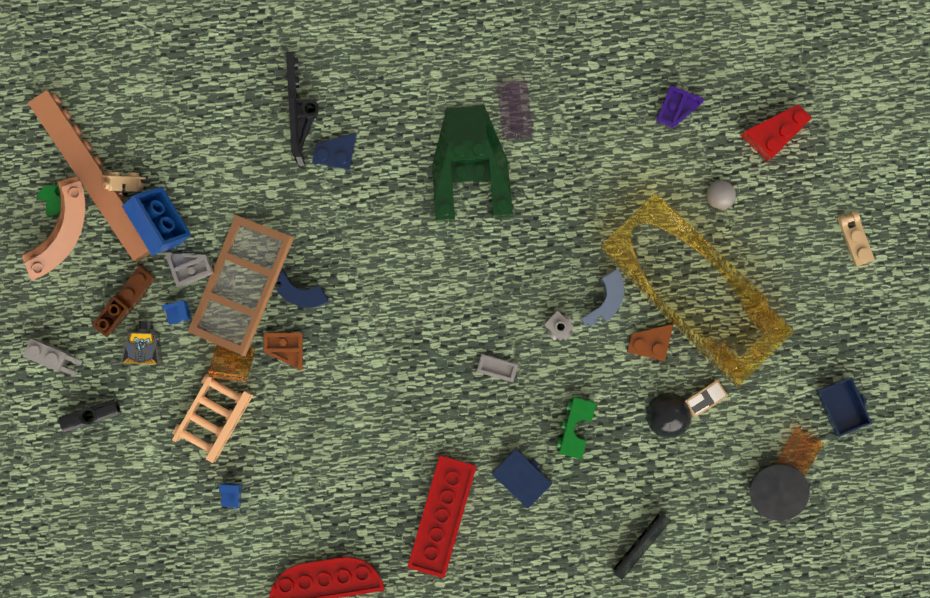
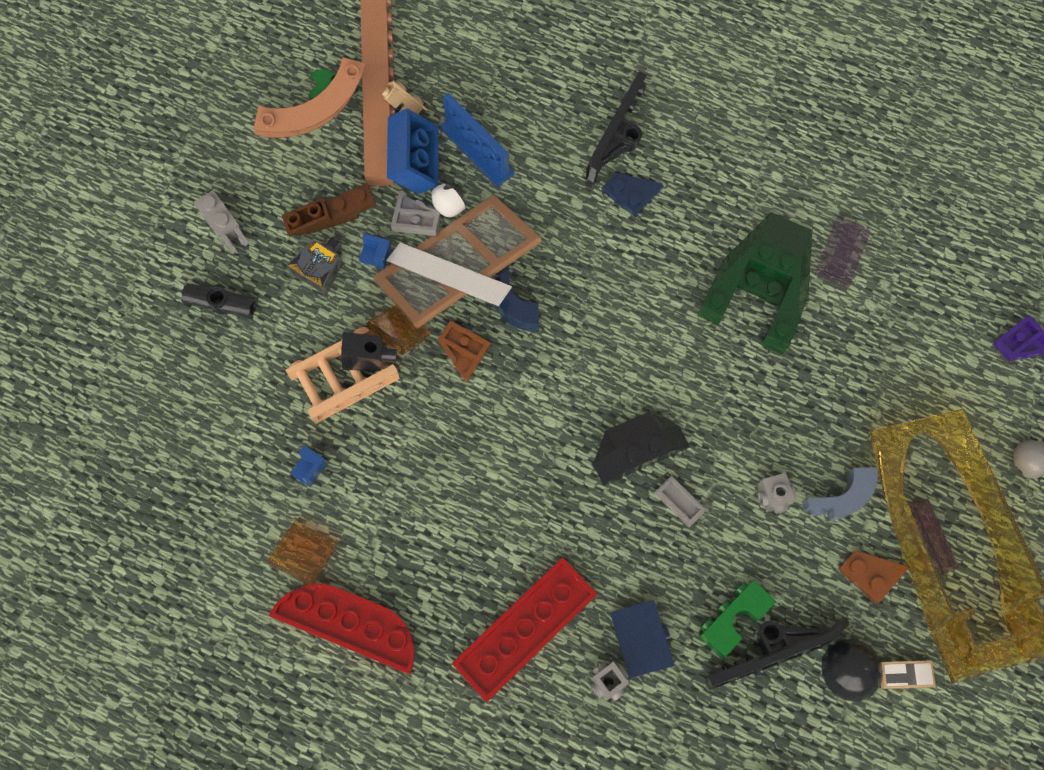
camera: 30 degrees right, 15 degrees down
(199, 184) = (475, 142): none -> blue fence
(205, 246) = (447, 201): none -> white hair
(212, 400) = (364, 352): none -> black torso
(242, 301) = (449, 274): none -> white sticker
(264, 554) = (303, 552): none -> clear orange tile
(446, 346) = (637, 446): none -> black wedge
(520, 524) = (618, 676): none -> light grey brick
(619, 424) = (789, 644): none -> black piece
(677, 295) = (933, 536): none -> piece

